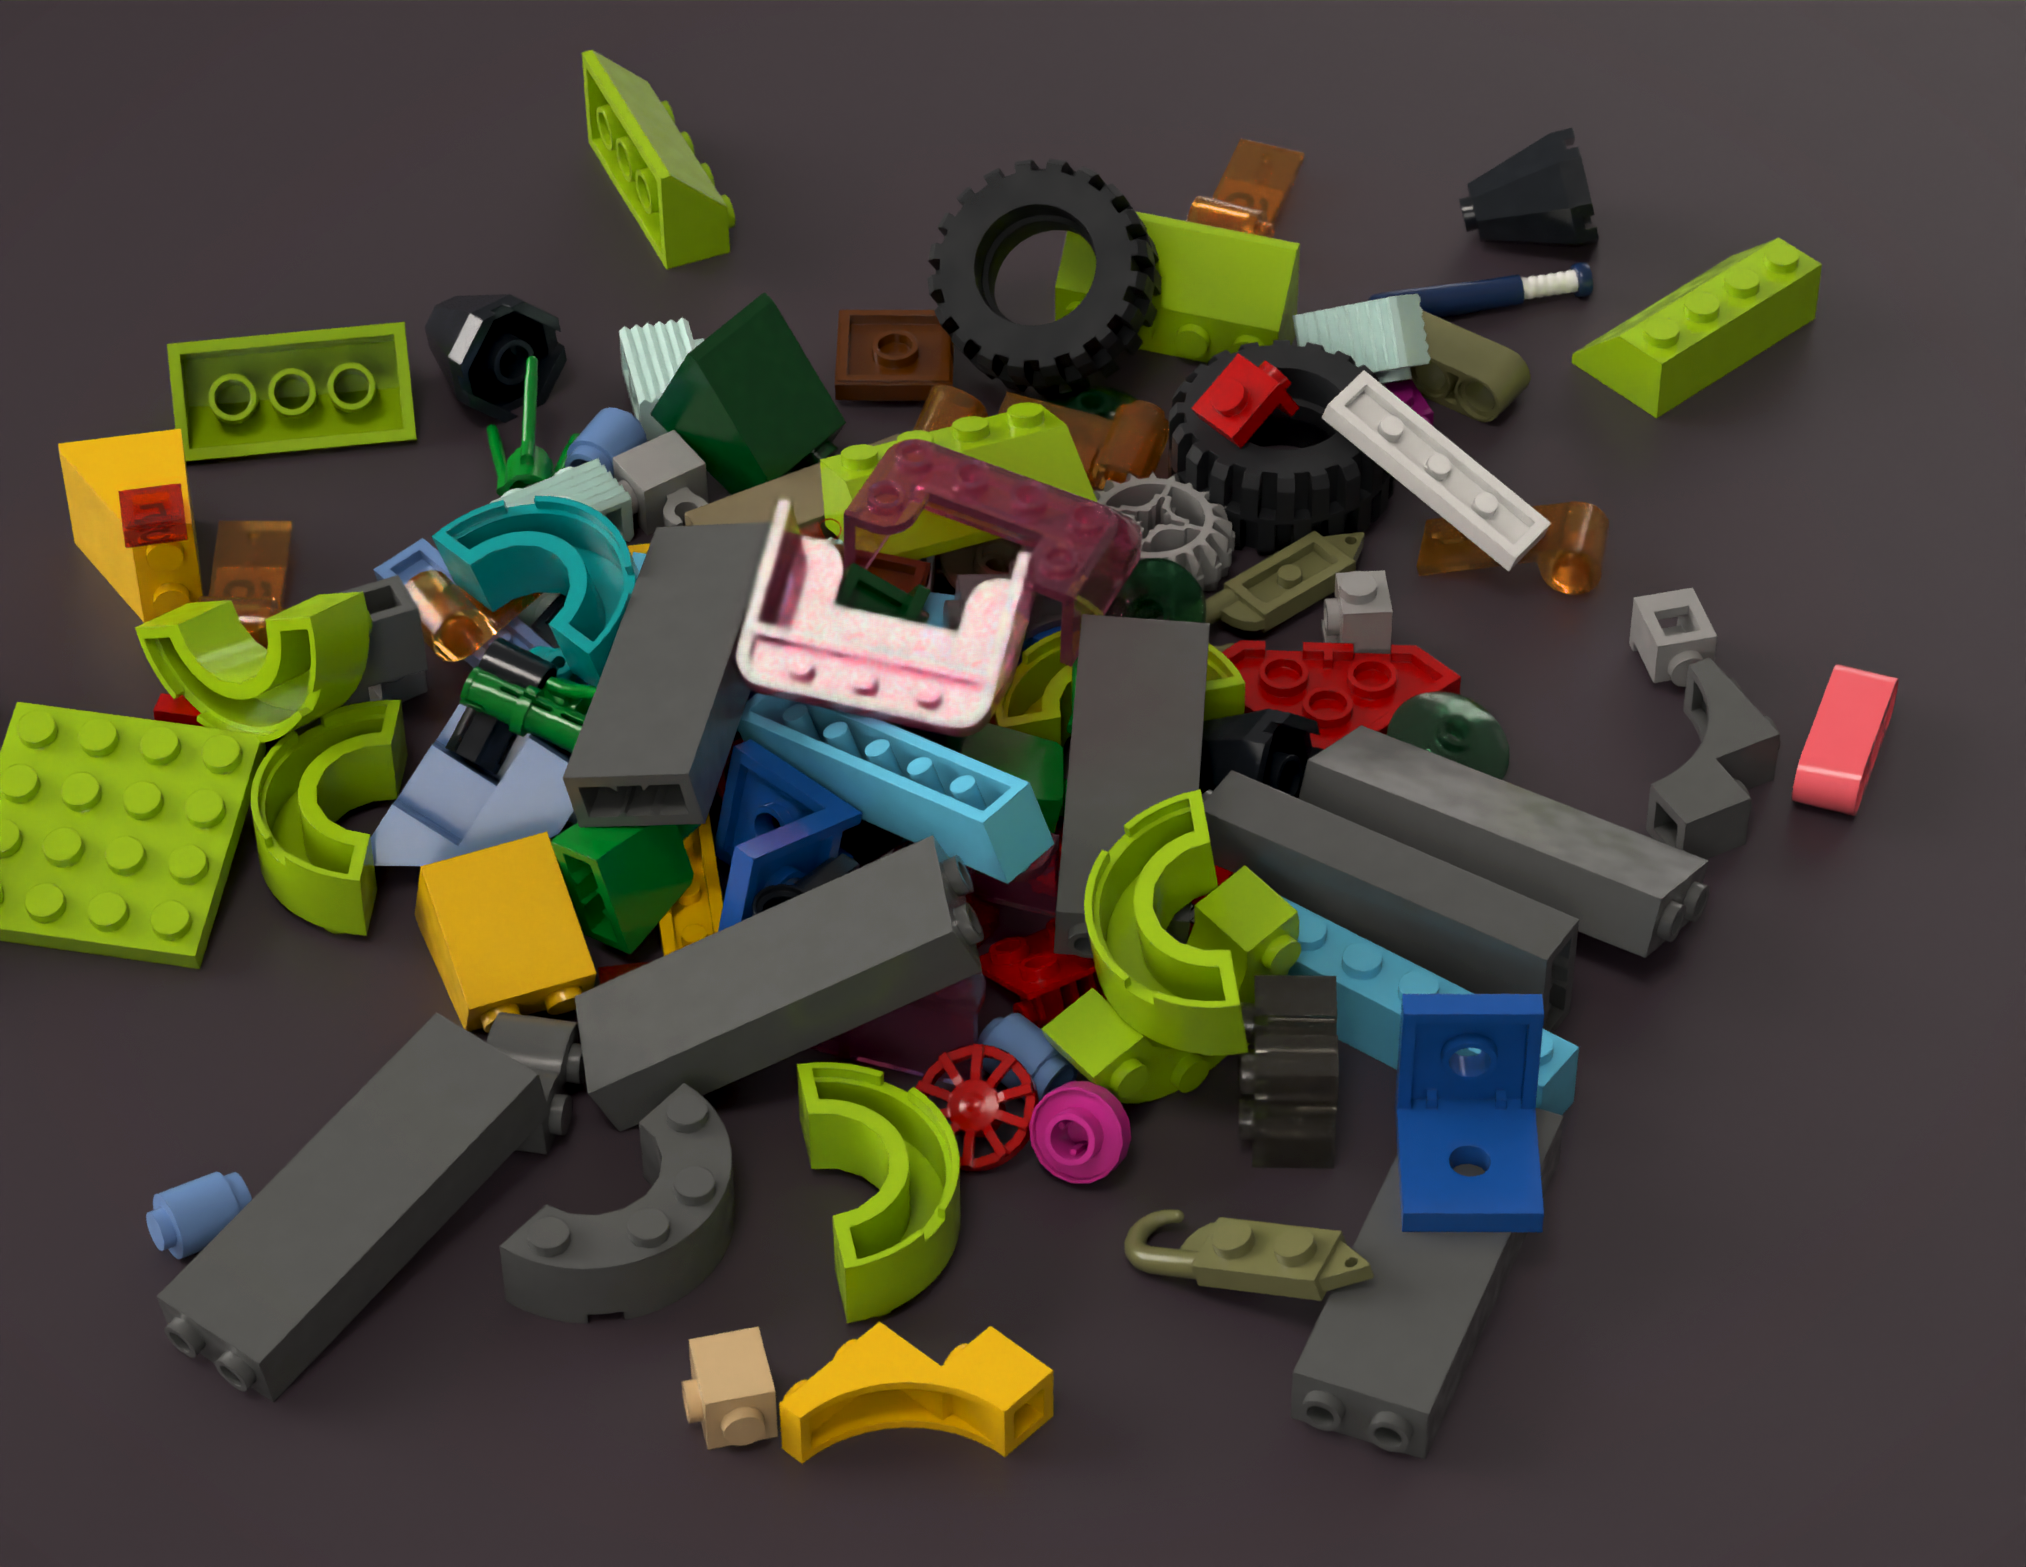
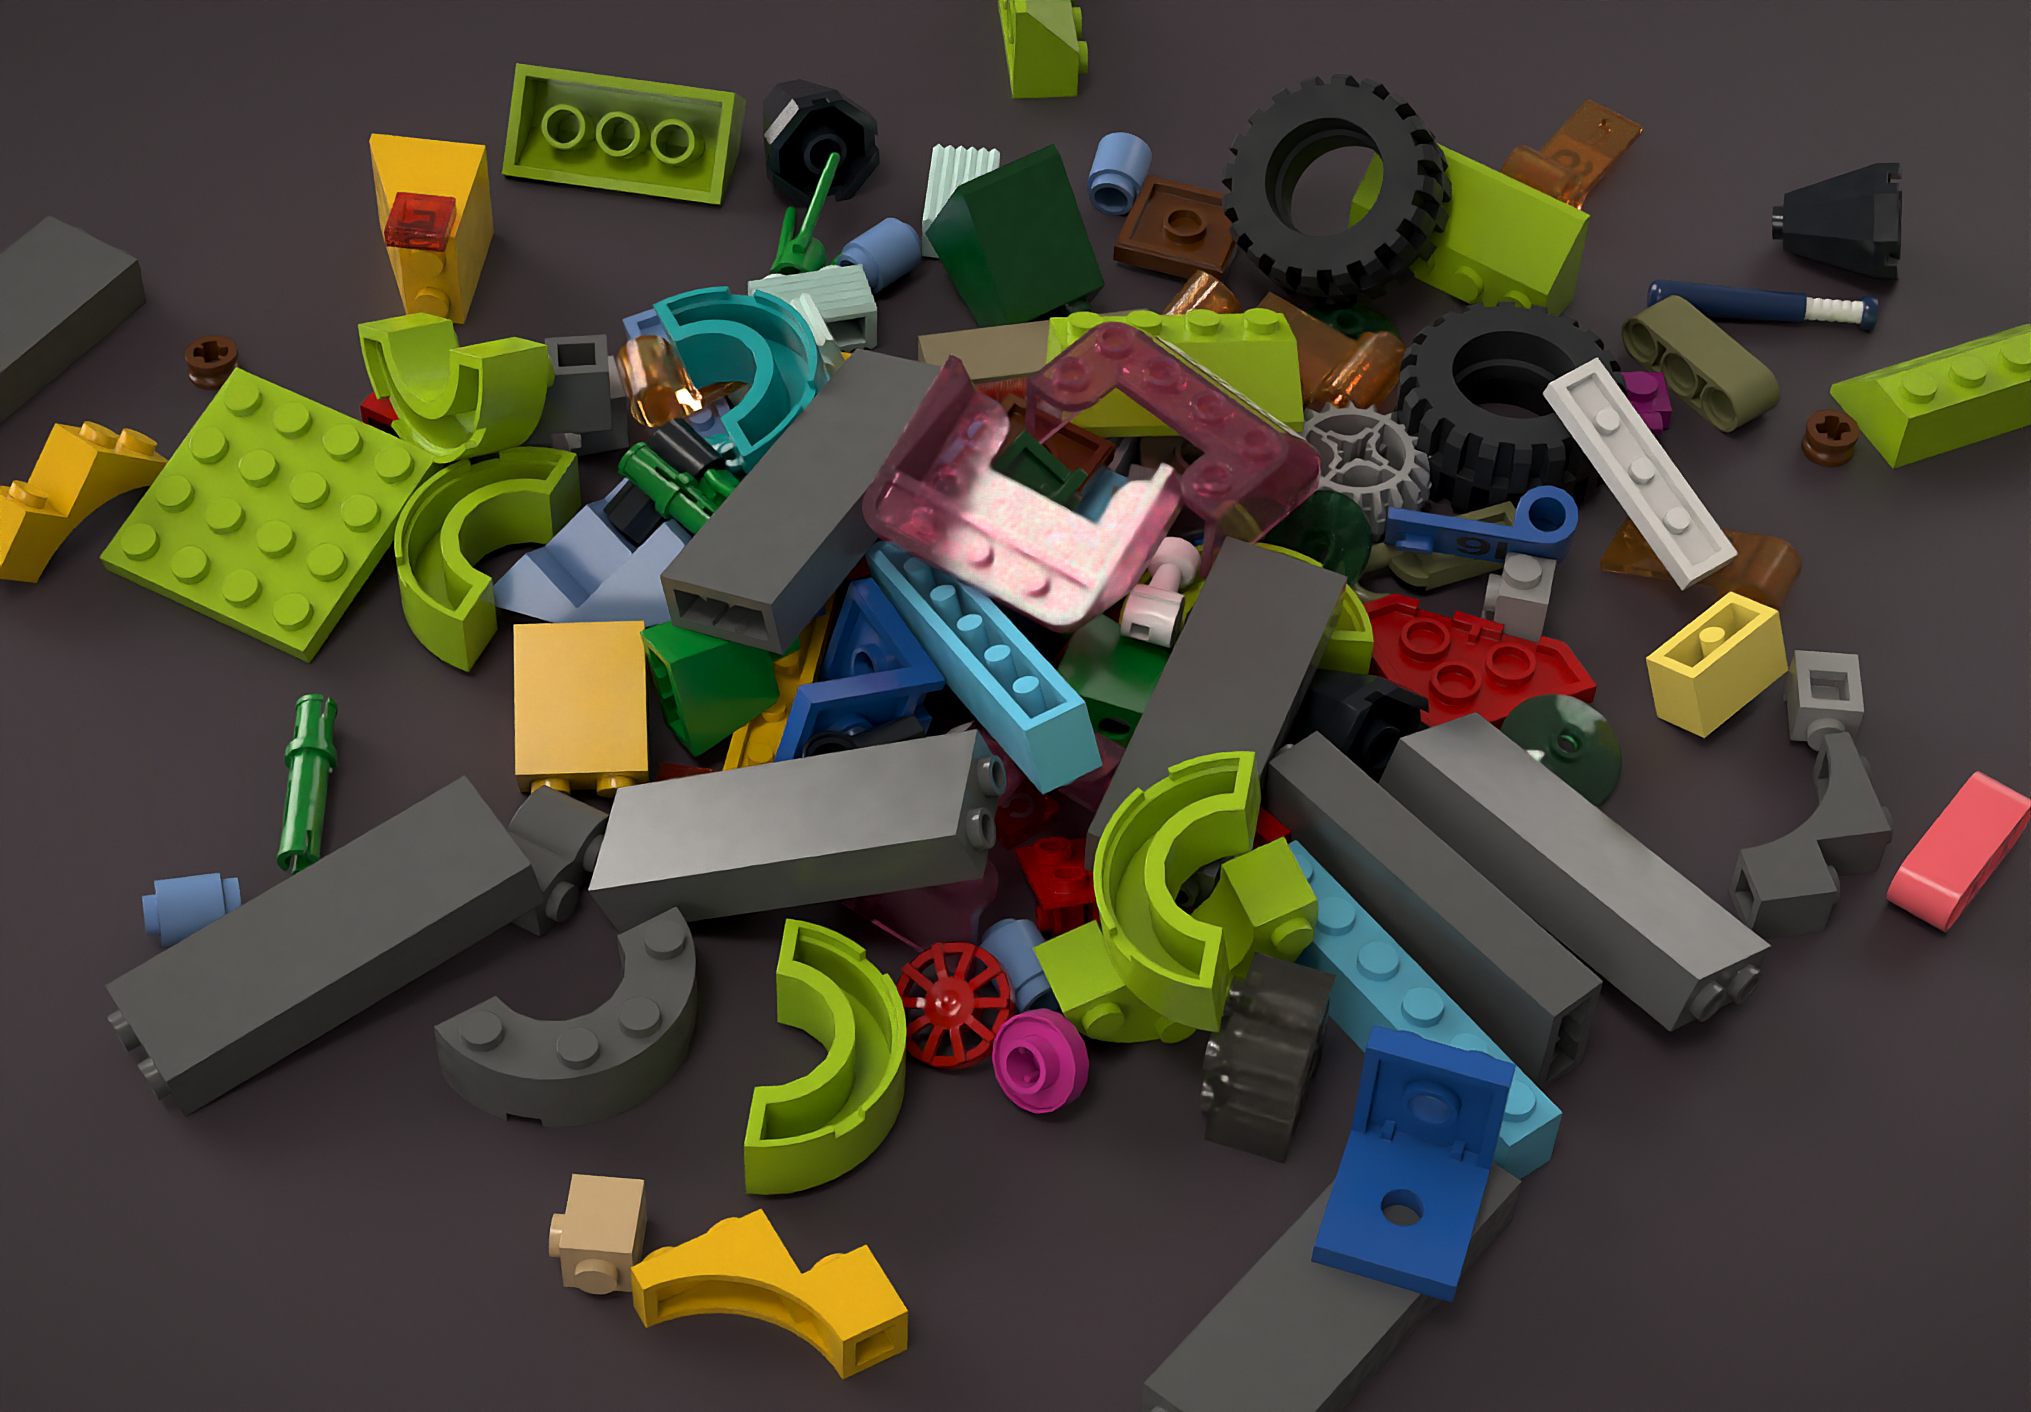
camera: 15 degrees right, 5 degrees up
(250, 1054) = (309, 765): none -> green pin
(251, 571) = (511, 295): clear orange door -> none
(662, 480) = (915, 301): light grey brick -> none
(811, 312) = (1118, 172): none -> medium blue brick
(1034, 698) = (1157, 608): none -> white leg
(1244, 399) = (1474, 357): red bracket -> none
(1250, 1256) = (1155, 1242): olive plate -> none
(1360, 542) = (1541, 528): none -> blue door
(1377, 333) = (1631, 322): light aqua brick -> none
(1566, 628) = (1717, 664): none -> light yellow brick
(1589, 403) = (1830, 424): none -> reddish brown bush

